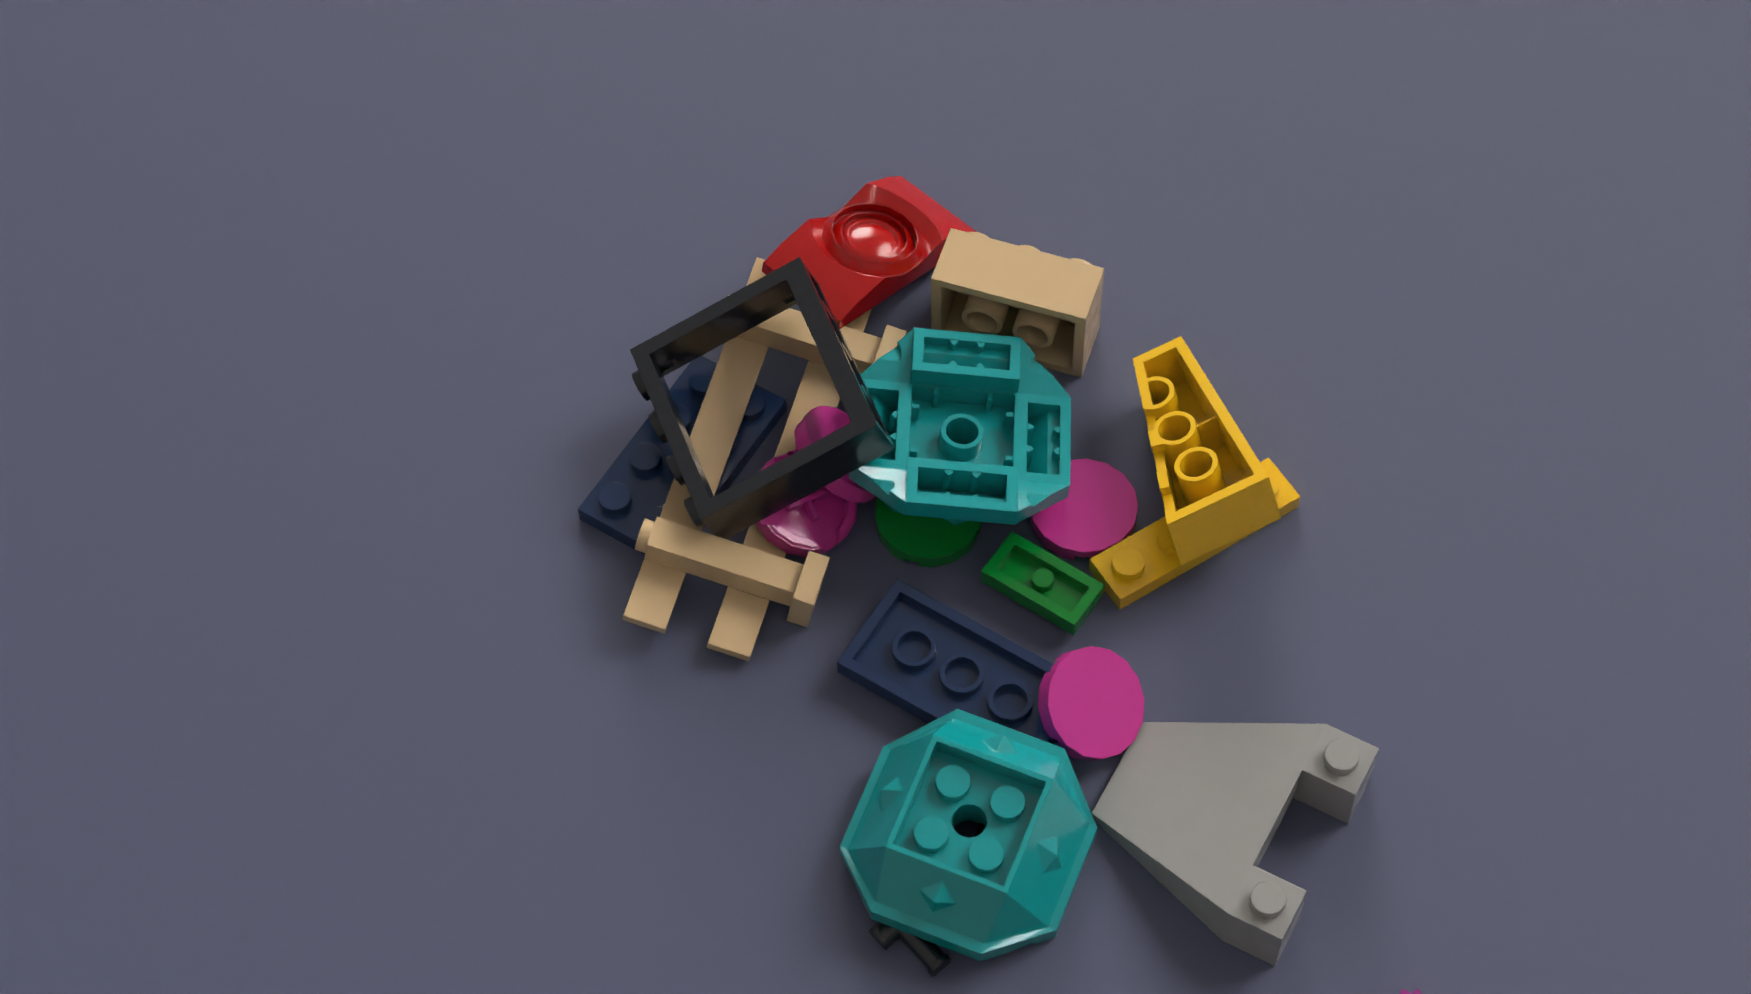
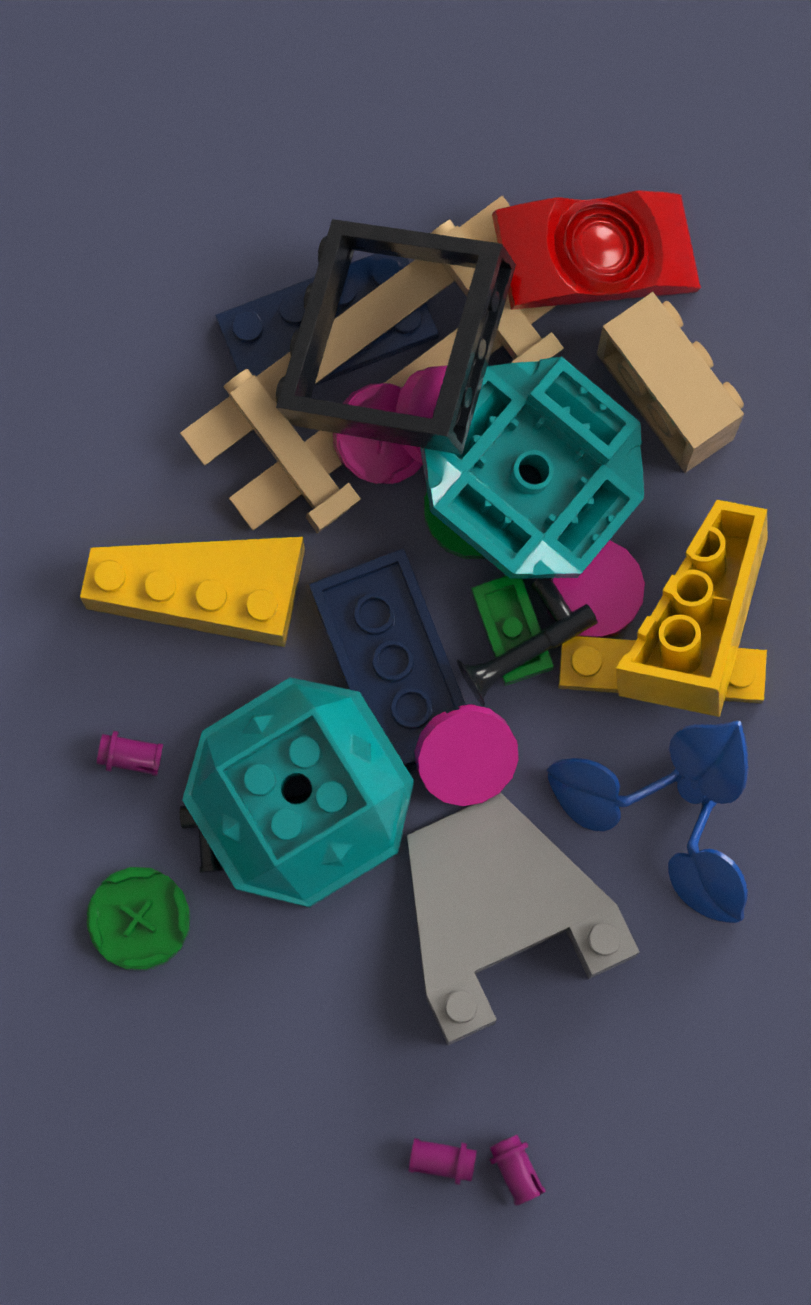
camera: 35 degrees right, 20 degrees up
(740, 728) = (202, 586): none -> yellow wedge
(787, 915) = (129, 754): none -> magenta pin
(1049, 634) = (566, 626): none -> black piece
(1308, 539) = (708, 771): none -> blue plant

